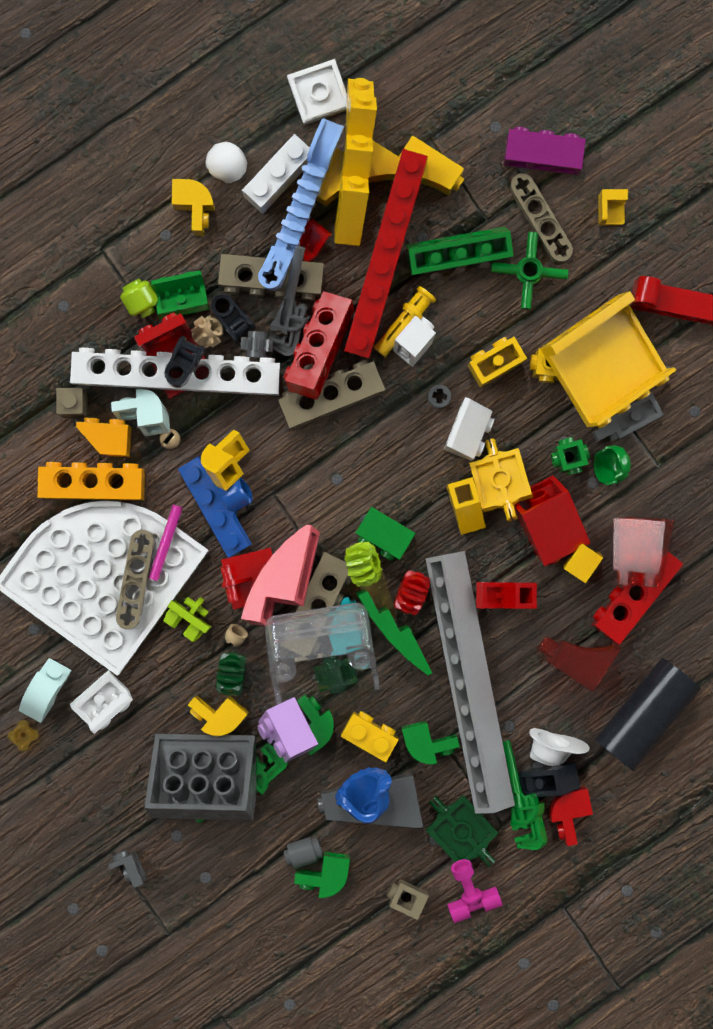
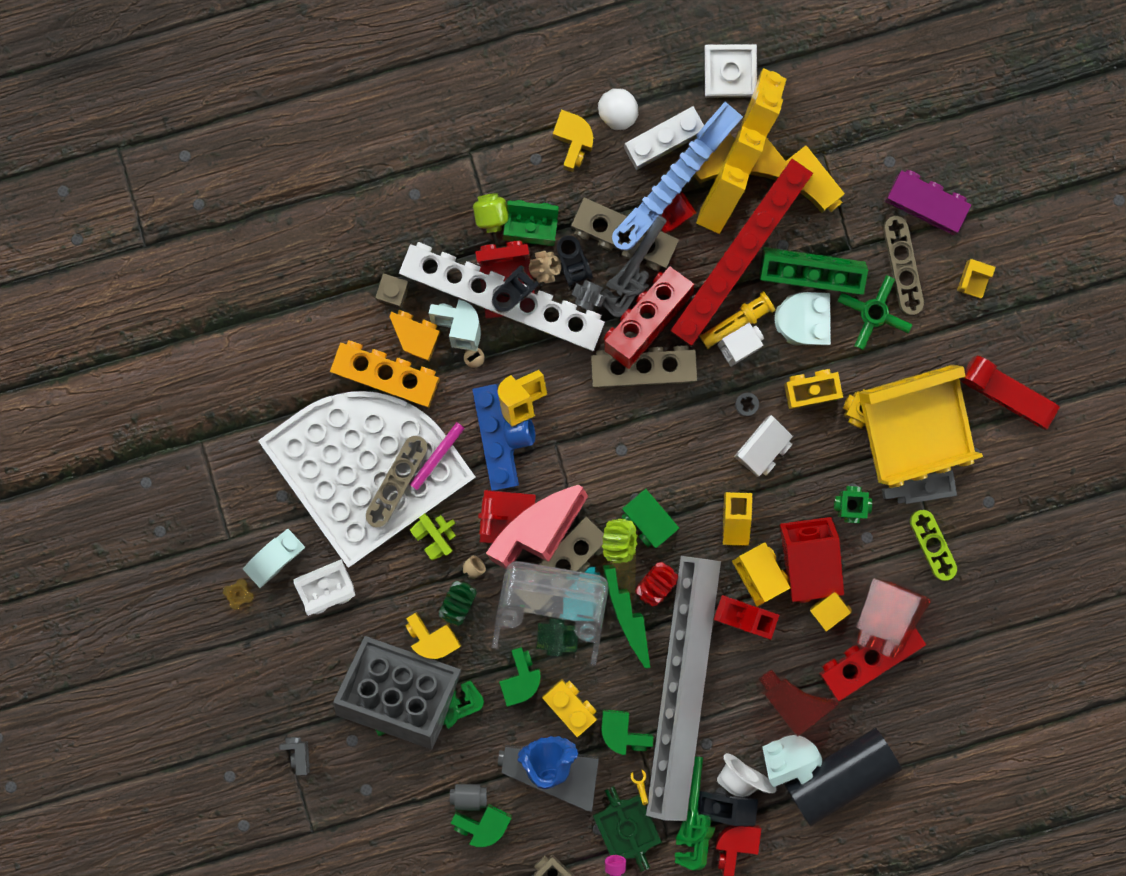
camera: 20 degrees right, 0 degrees up
(288, 730) = (495, 674): lavender brick -> none
(462, 788) = (641, 787): none -> yellow hand
(466, 298) = (805, 318): none -> light aqua slope
(501, 480) = (778, 505): yellow plate -> none
(506, 550) = (761, 574): none -> yellow brick
(593, 714) = (791, 759): none -> light aqua slope
(612, 465) = (890, 526): green hair -> none
(665, 487) = (943, 546): none -> lime beam

